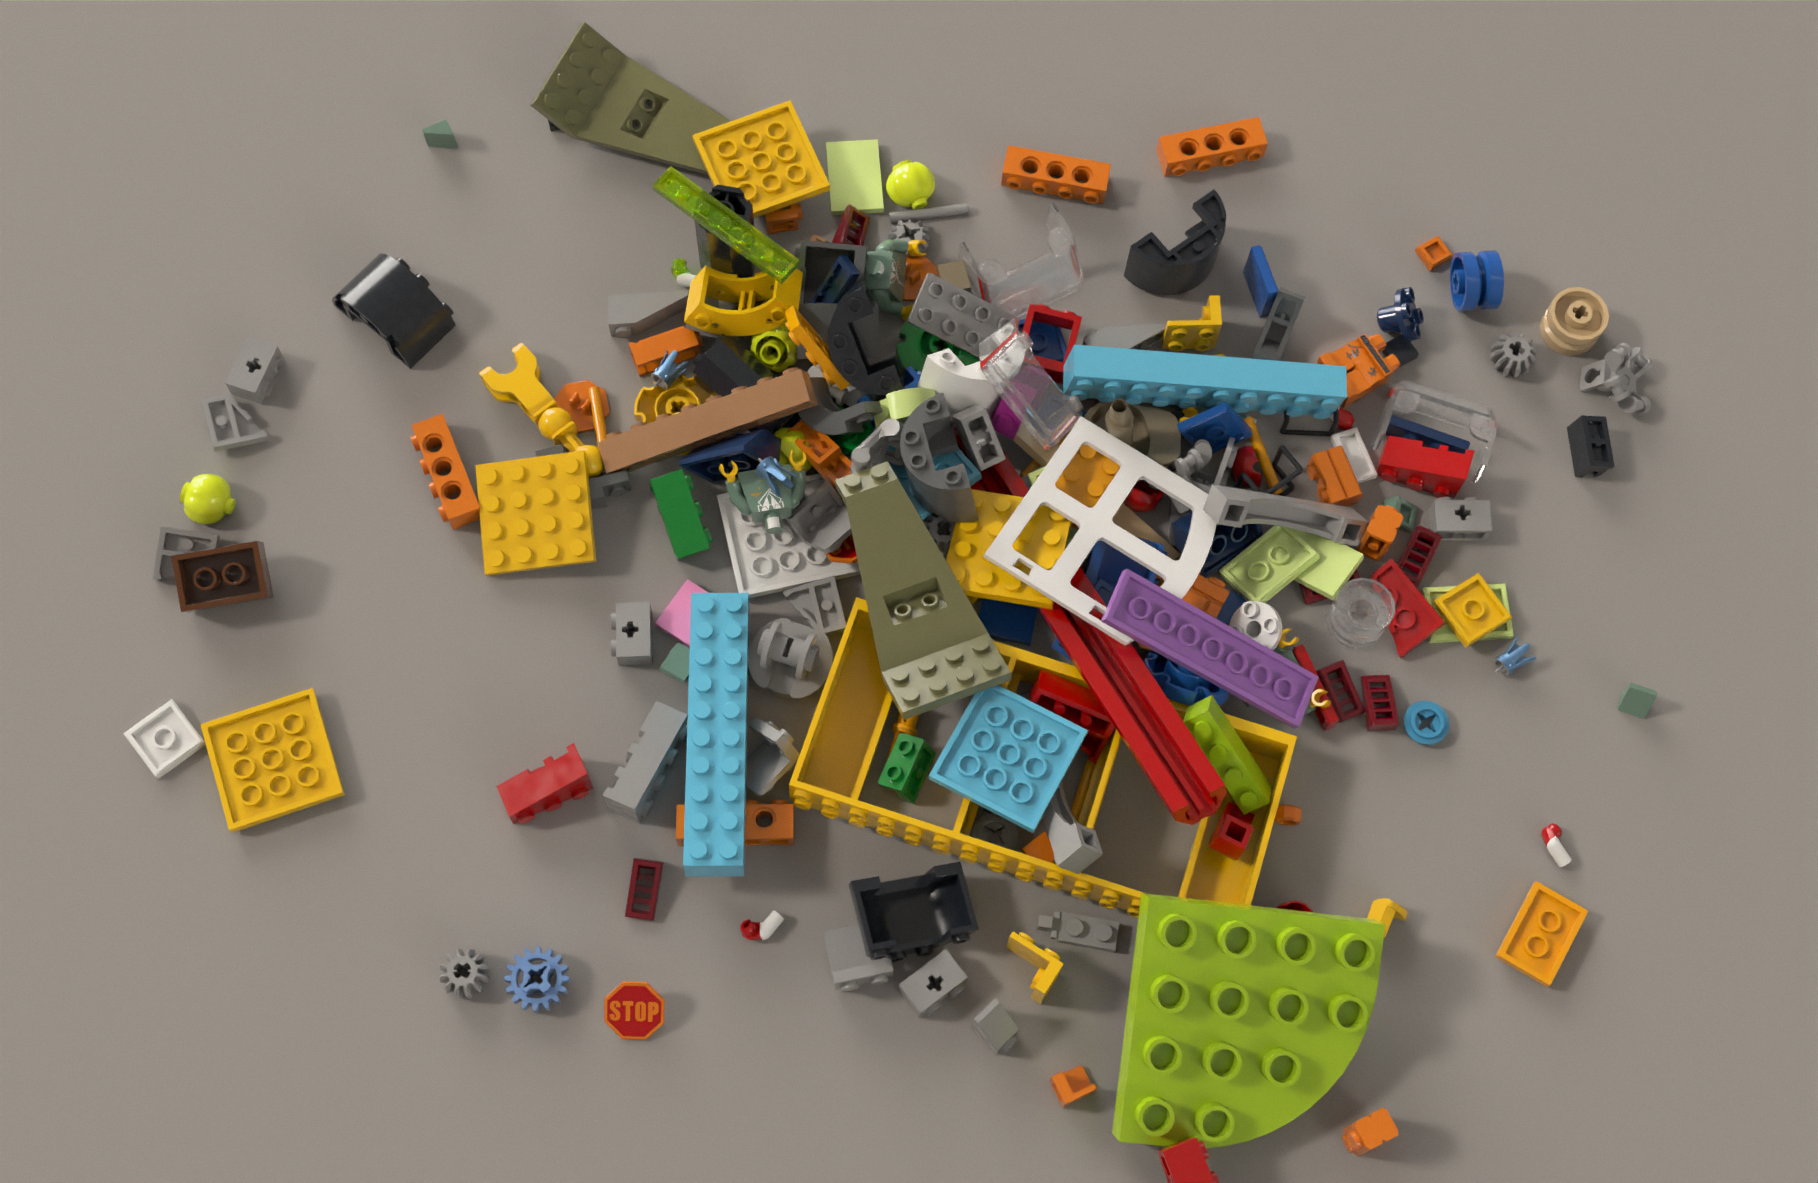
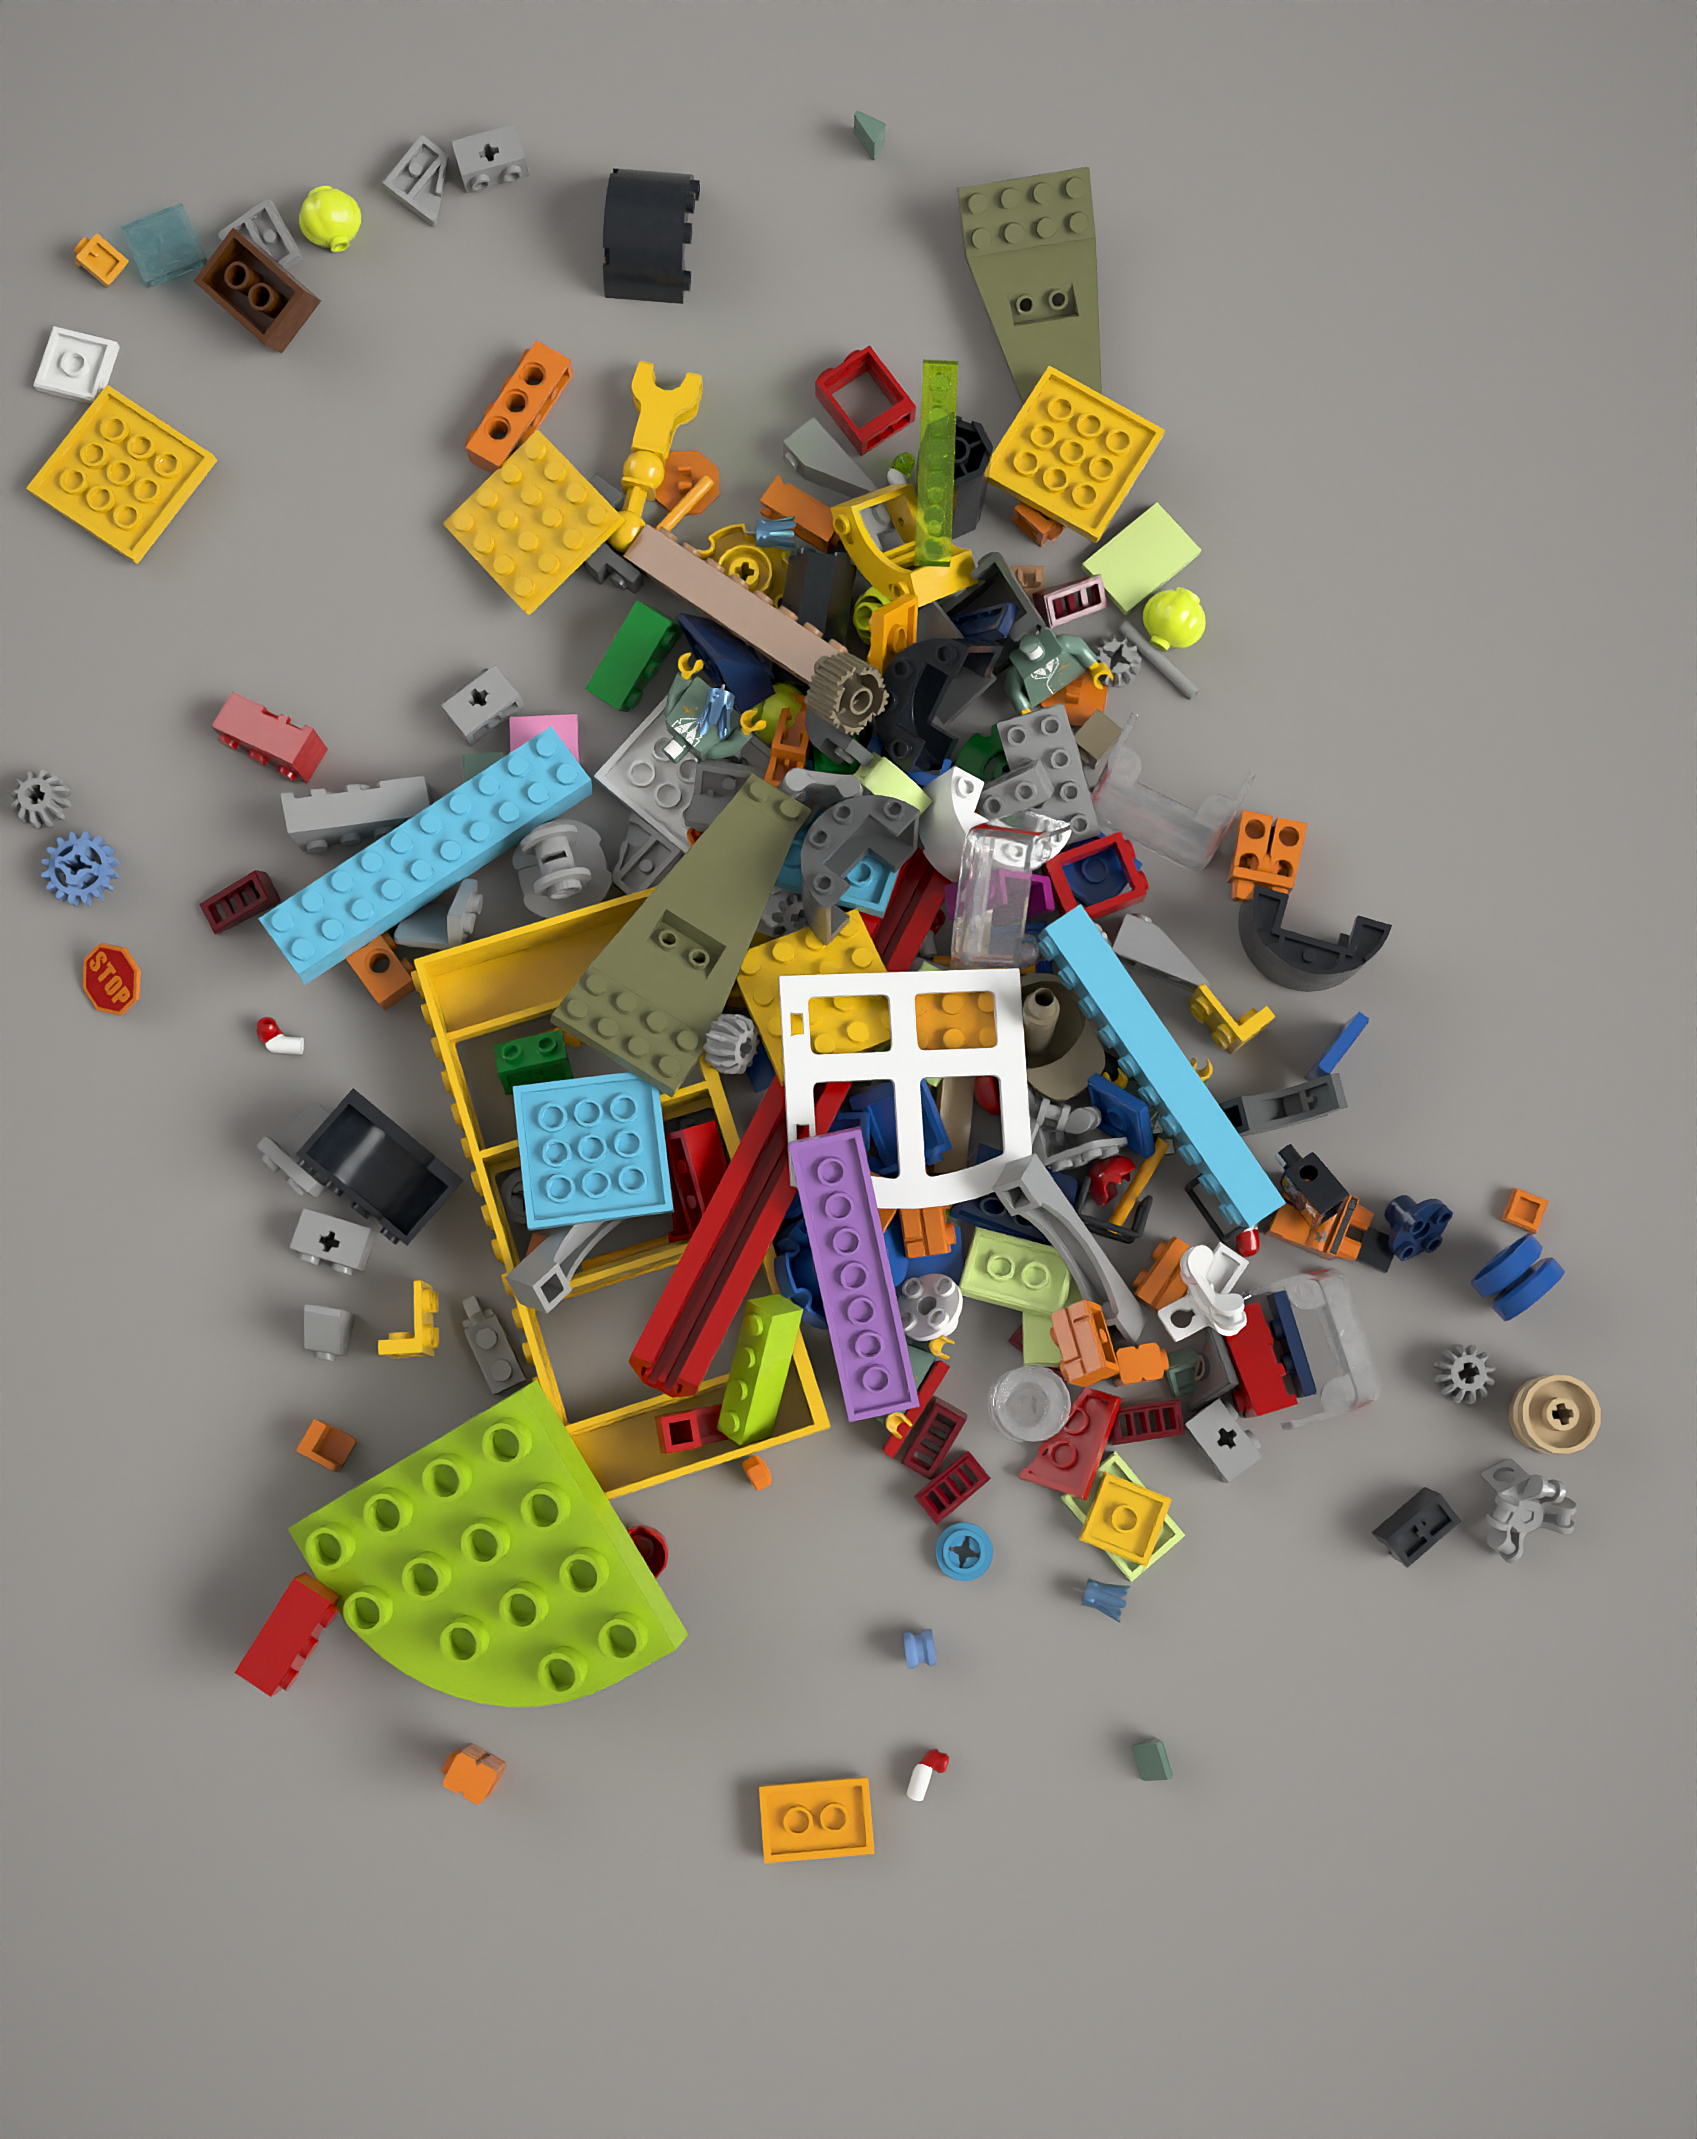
camera: 55 degrees right, 10 degrees up
(102, 668) = (99, 259): none -> light orange bracket
(130, 619) = (164, 245): none -> clear light blue tile
(618, 240) = (883, 426): none -> red window
(828, 384) = (846, 692): none -> dark tan brick
(963, 337) = (1015, 791): none -> light grey brick
(978, 437) = (917, 882): light grey brick -> none
(1001, 621) = (731, 1043): none -> light grey gear
(1048, 164) = (1287, 707): orange brick -> none
(1104, 238) = (1255, 865): none -> orange hips
(1220, 137) = (1483, 893): orange brick -> none
(1342, 348) = (1317, 1198): none -> black torso
(1348, 548) = (1083, 1344): none -> orange brick
(1369, 460) = (1211, 1309): none -> white piece
(1385, 910) = (715, 1640): yellow tile -> none
(1415, 491) = (1213, 1372): none -> dark grey tile
(1472, 792) = (919, 1648): none -> medium blue wheel

